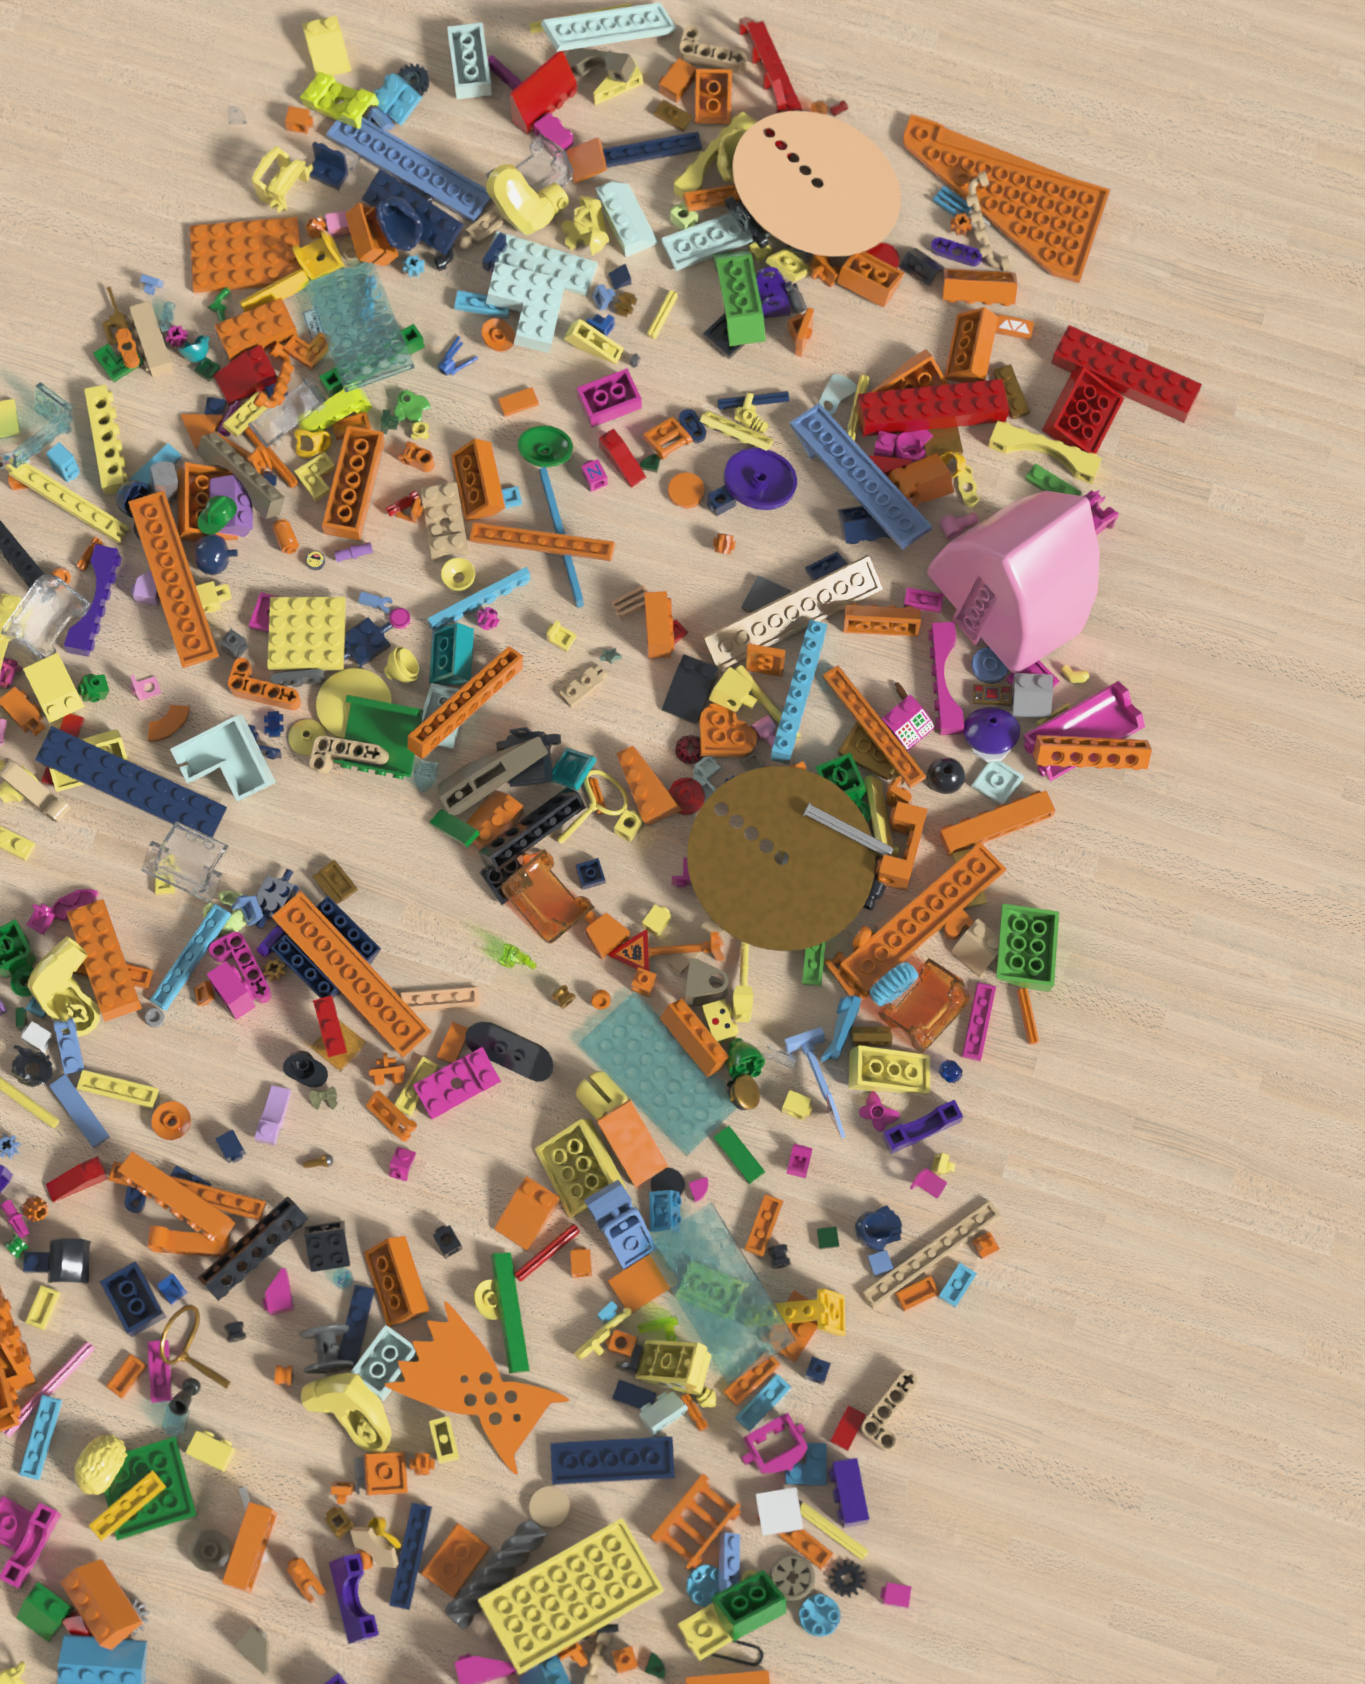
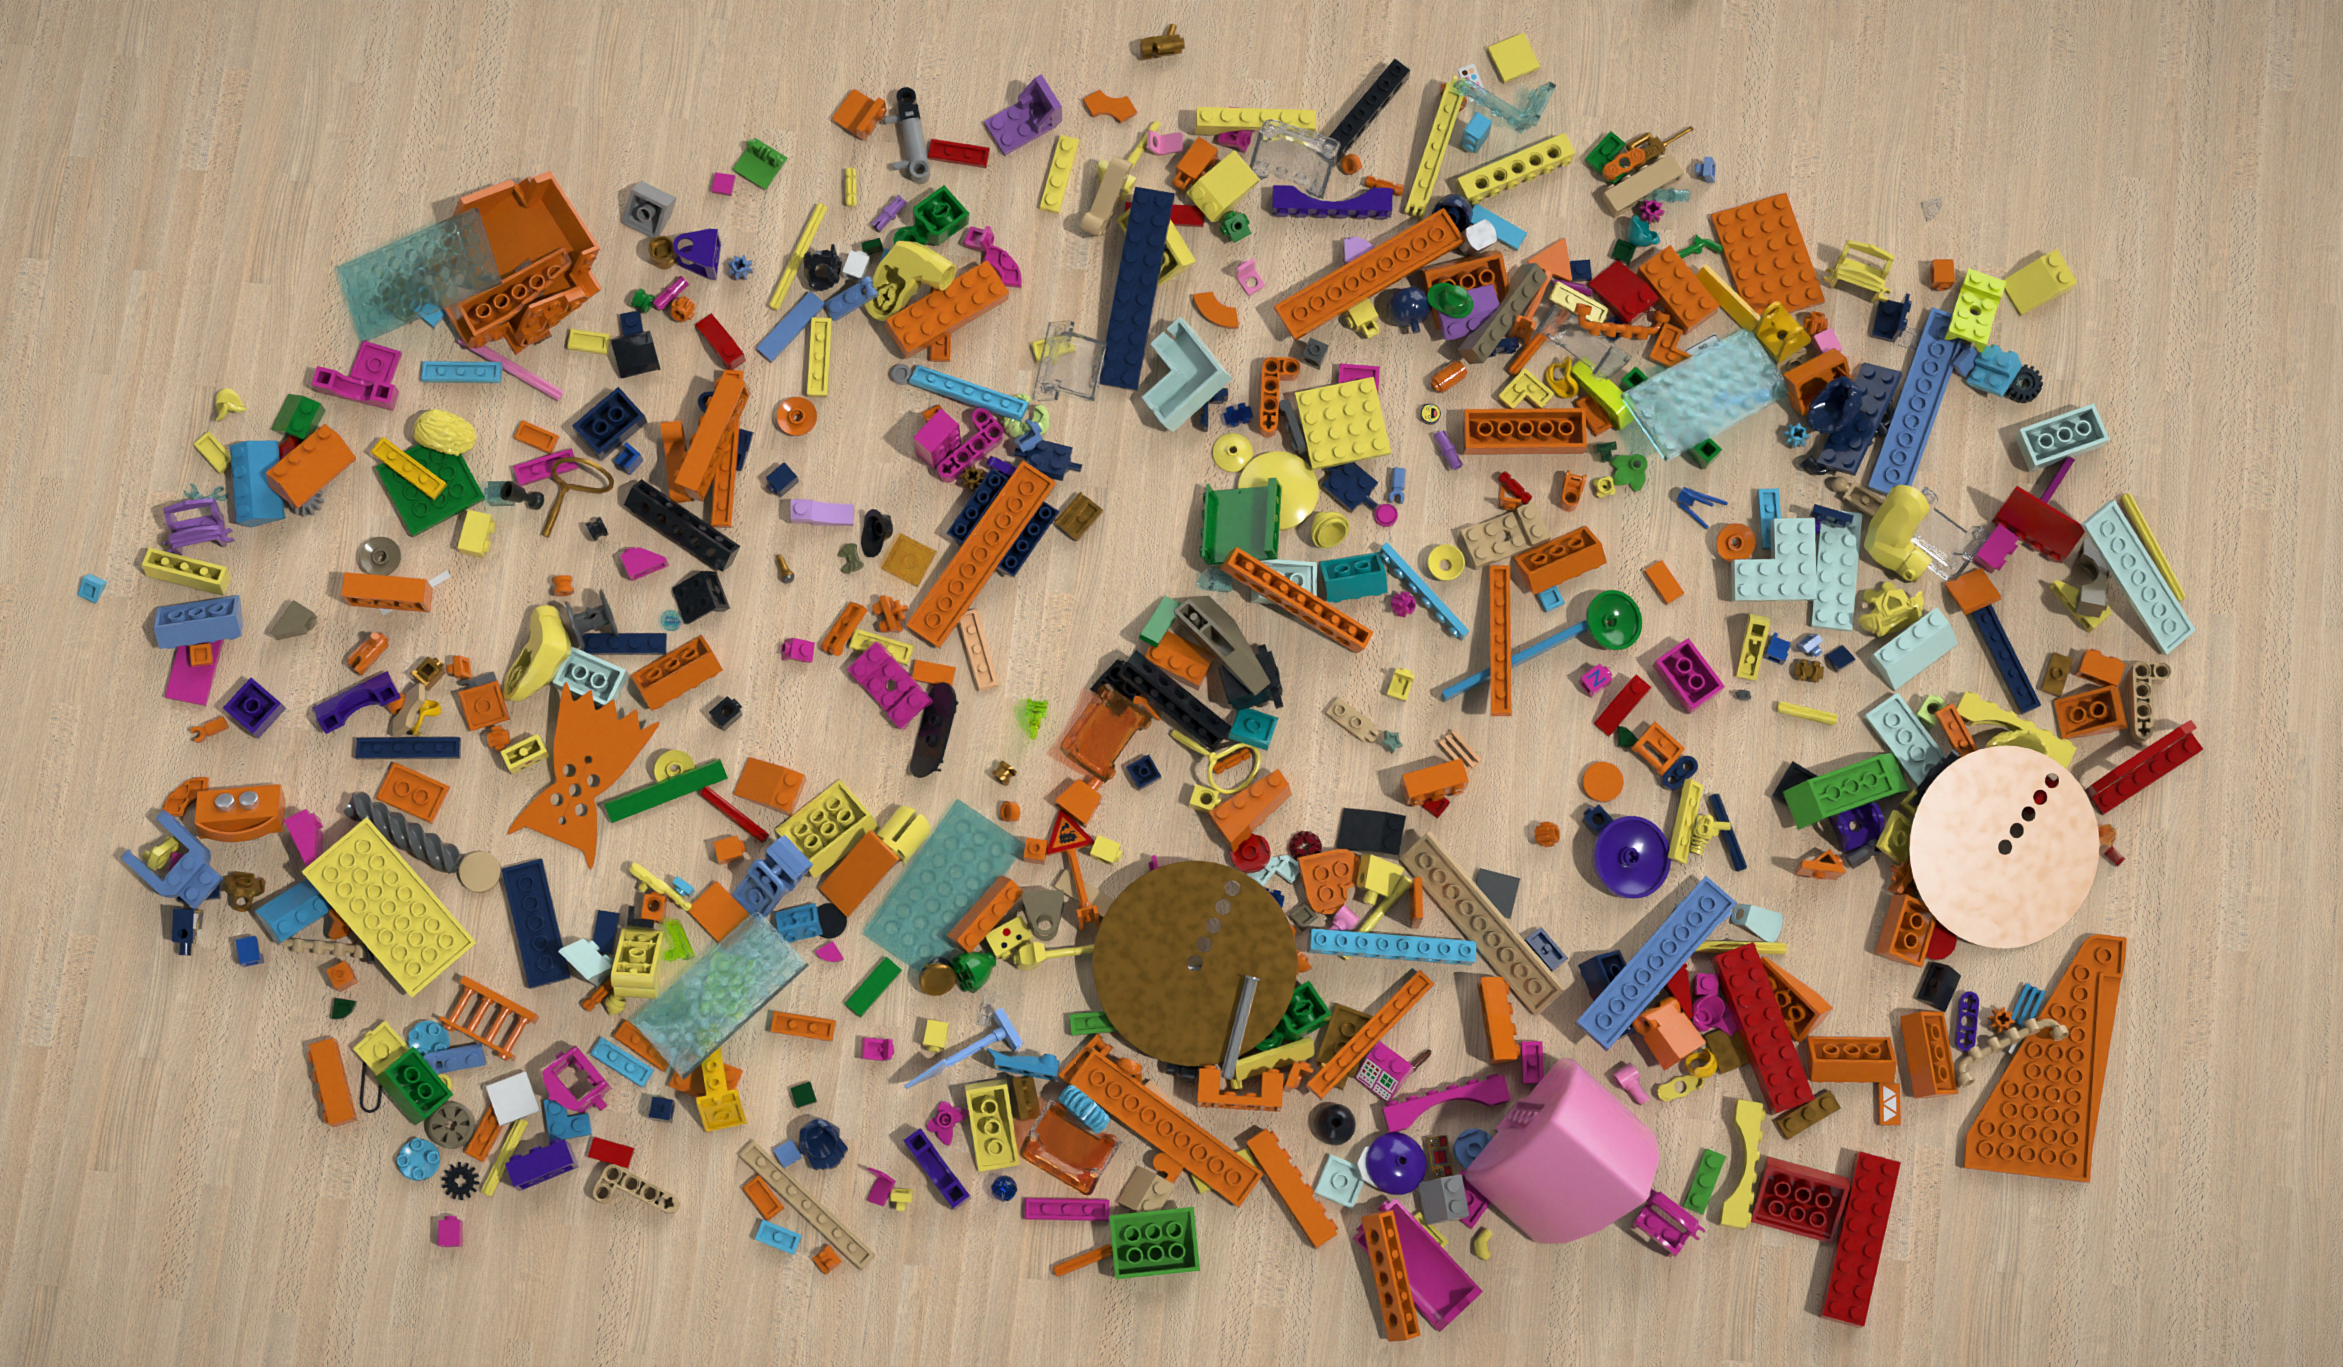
camera: 75 degrees right, 5 degrees up
(330, 1026) = (929, 538): red arch -> none
(350, 753) = (1218, 497): tan beam -> none
(779, 1256) = (773, 1048): black wheel -> none

